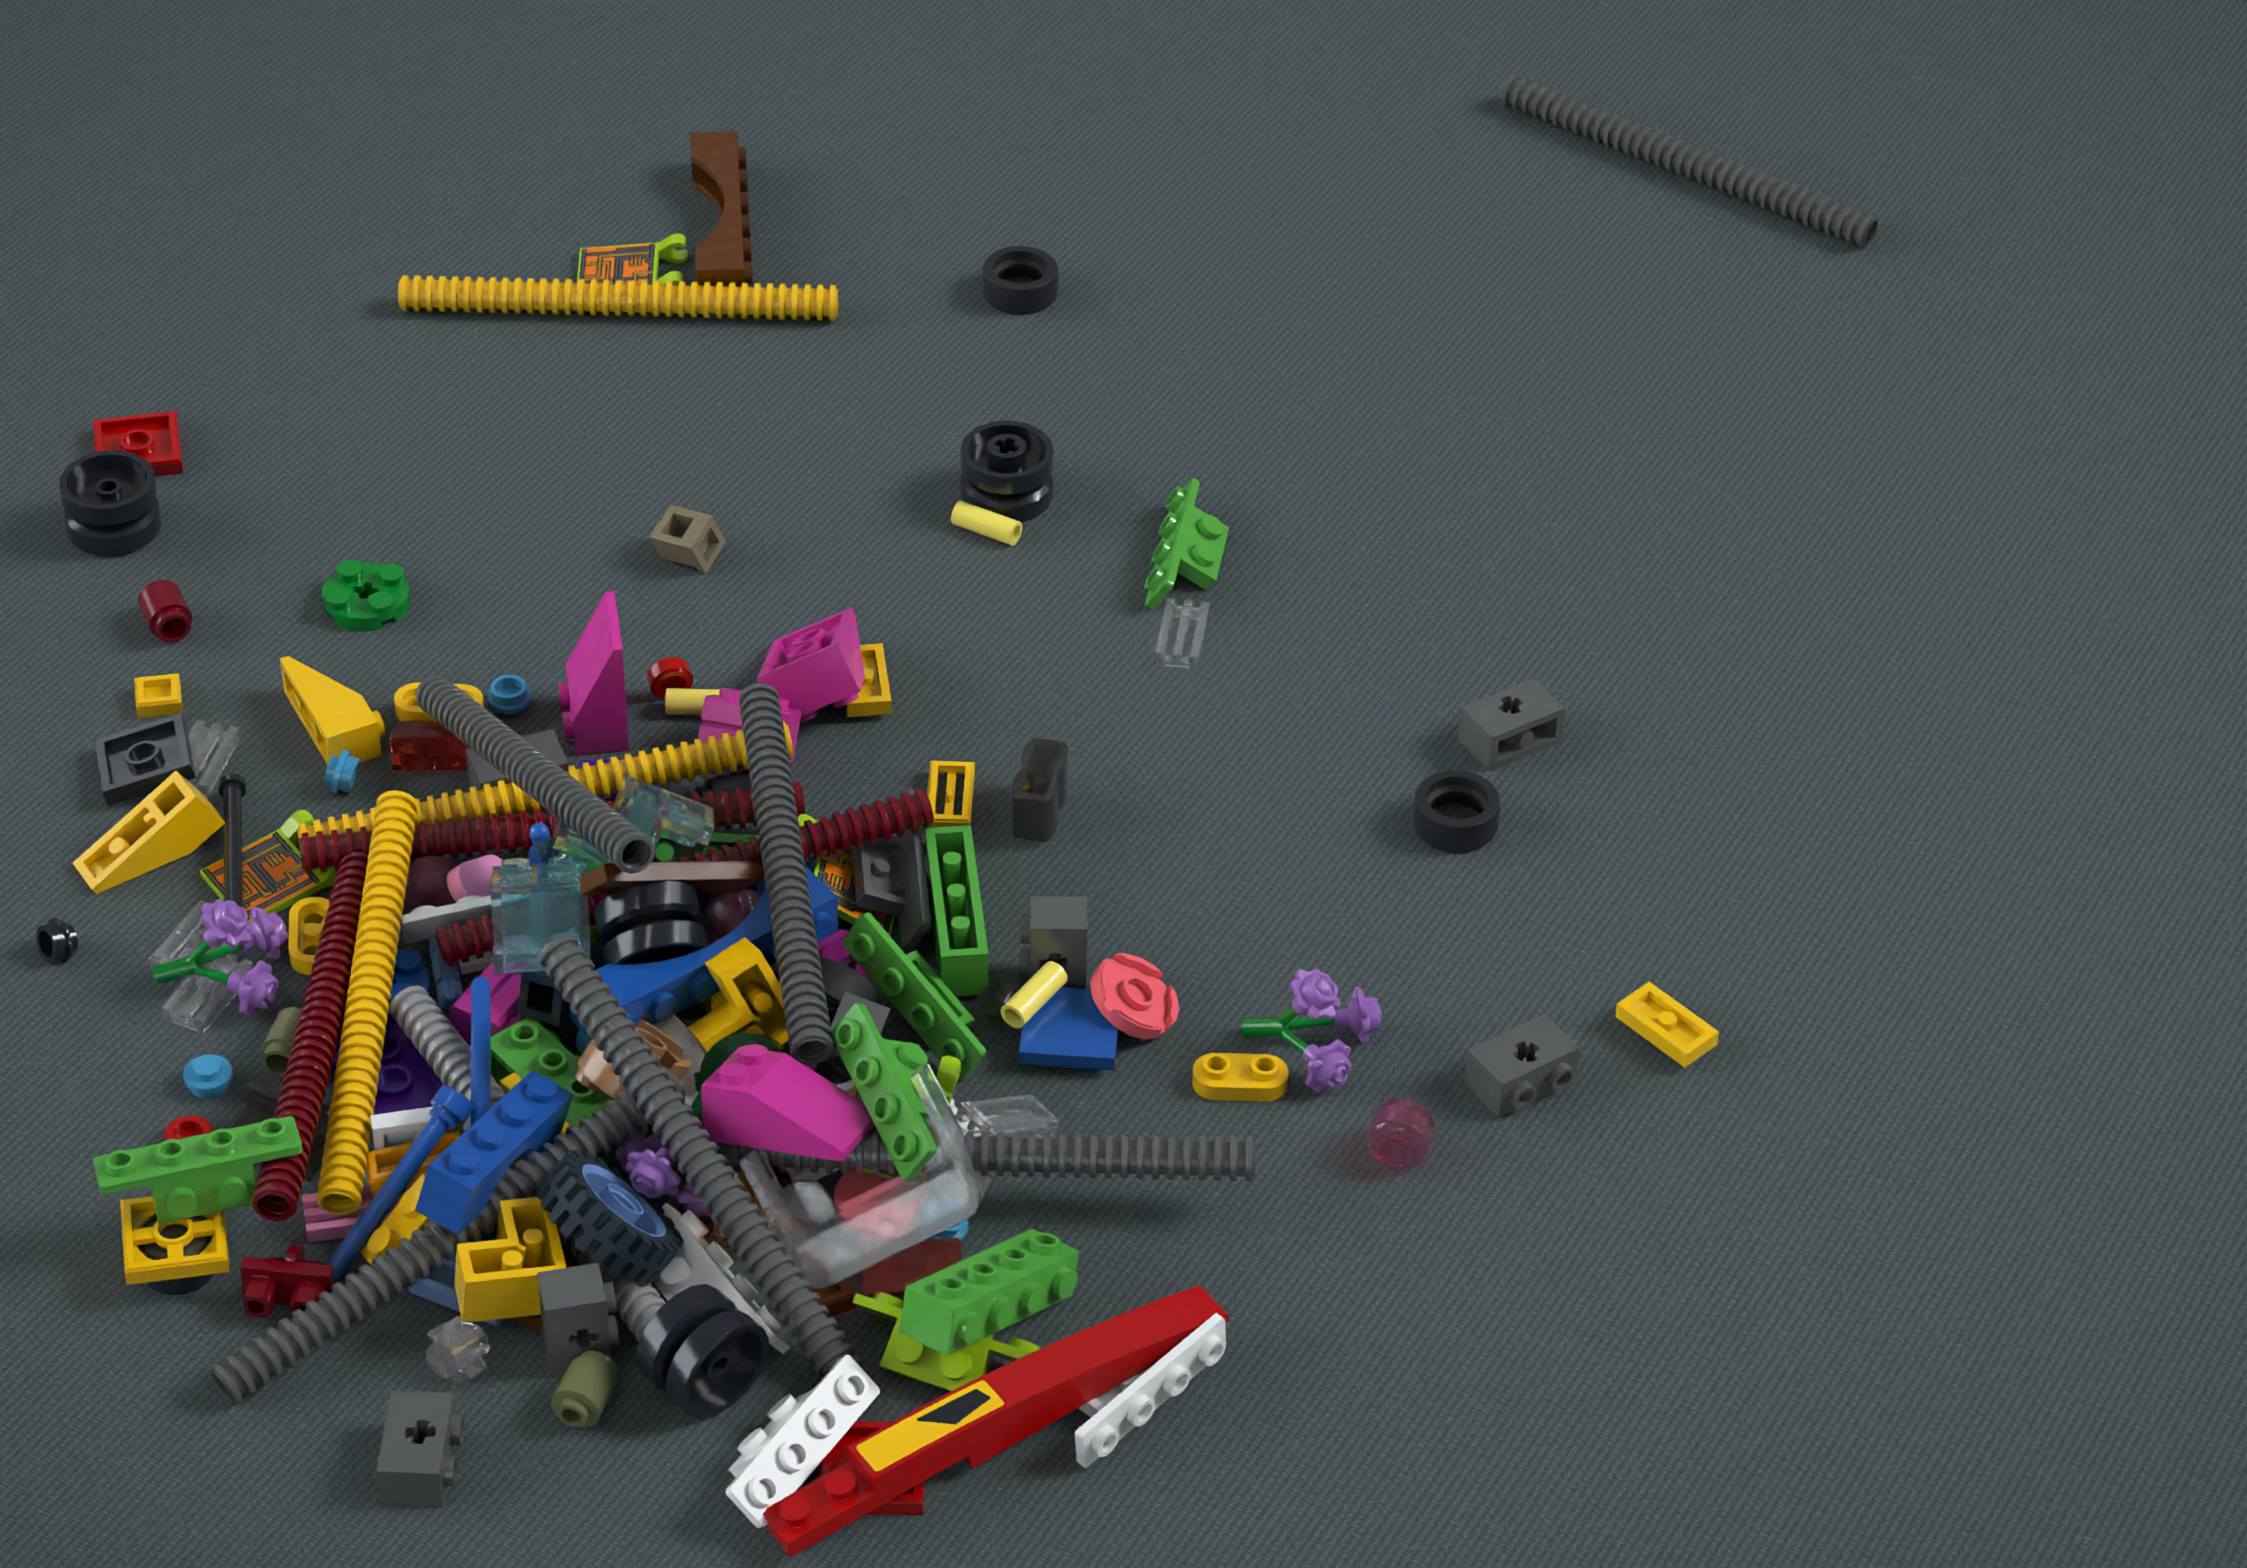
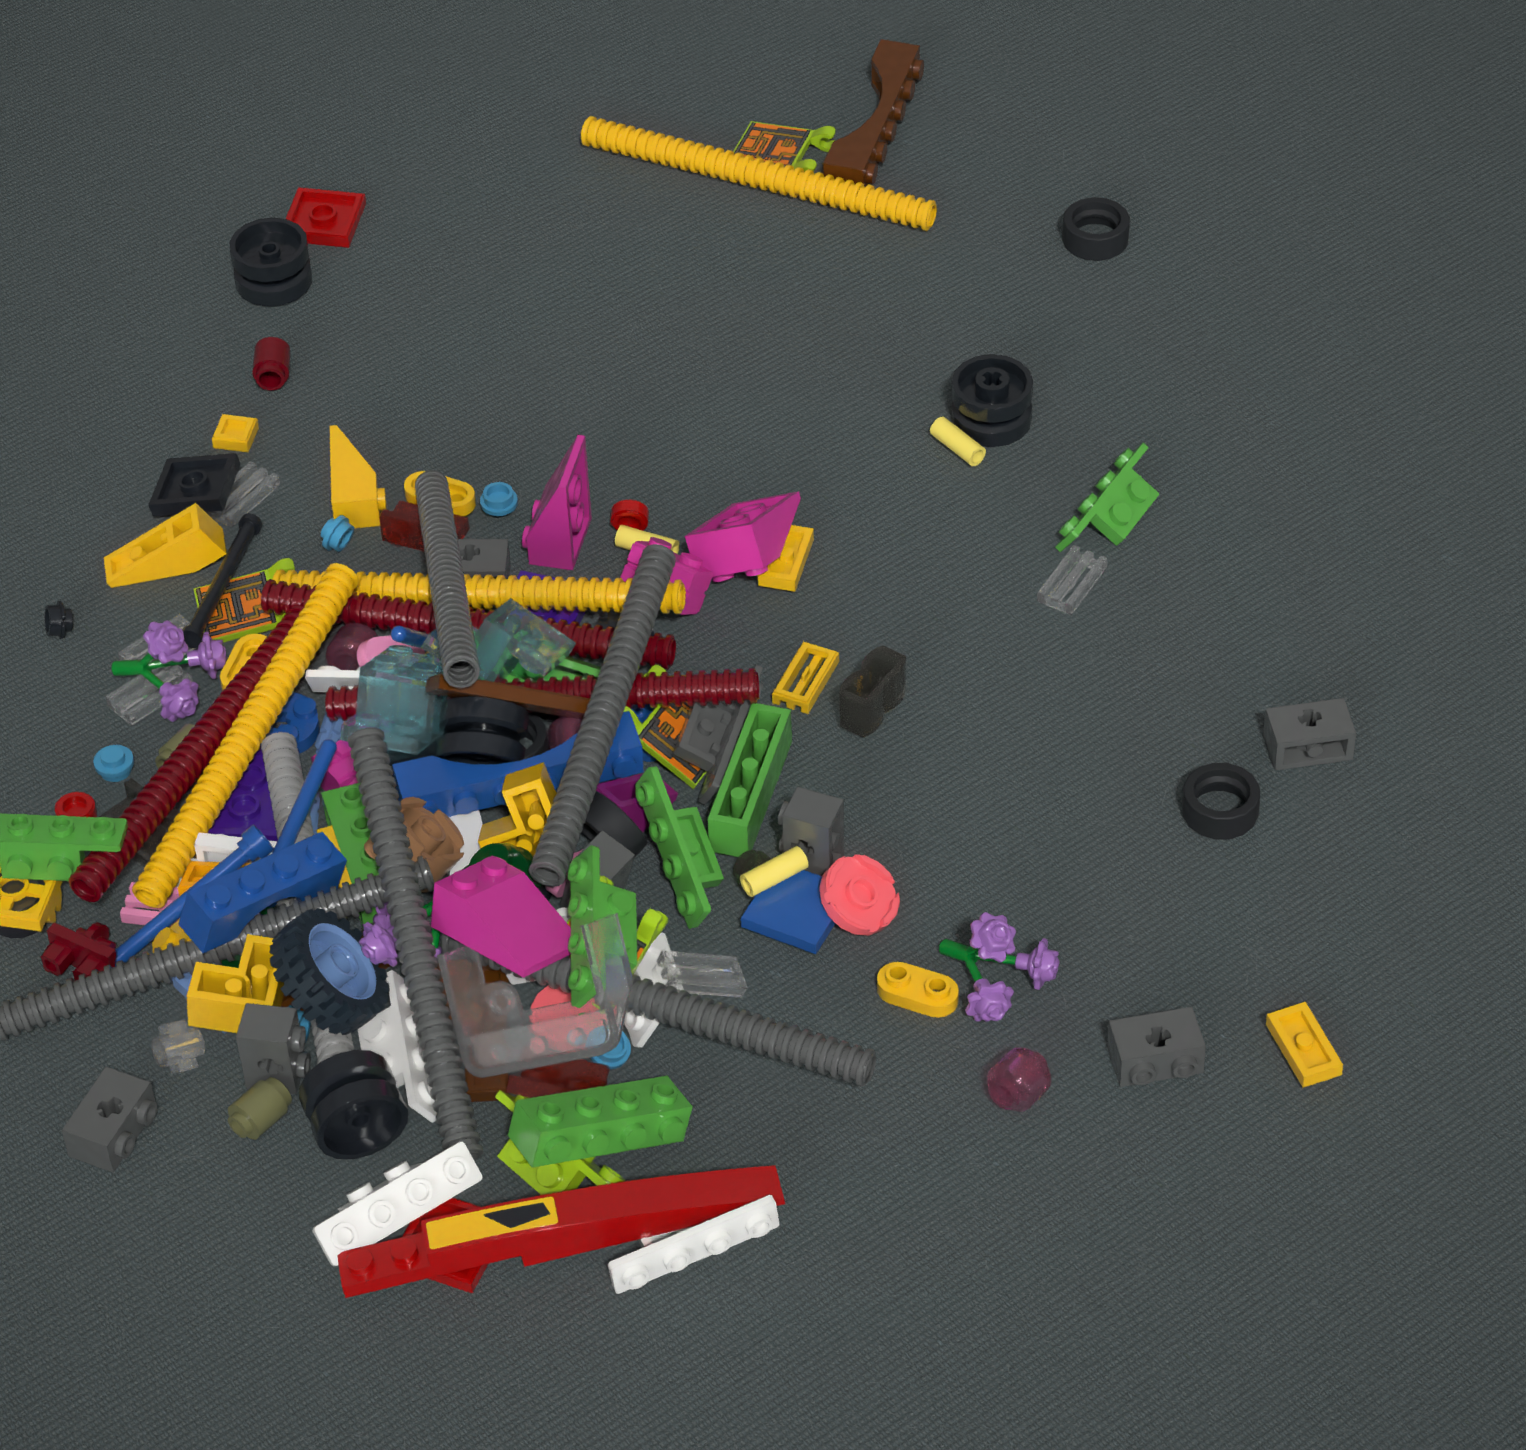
camera: 25 degrees right, 5 degrees up
(386, 590) = (428, 370): green plate -> none
(688, 538) = (704, 398): dark tan brick -> none

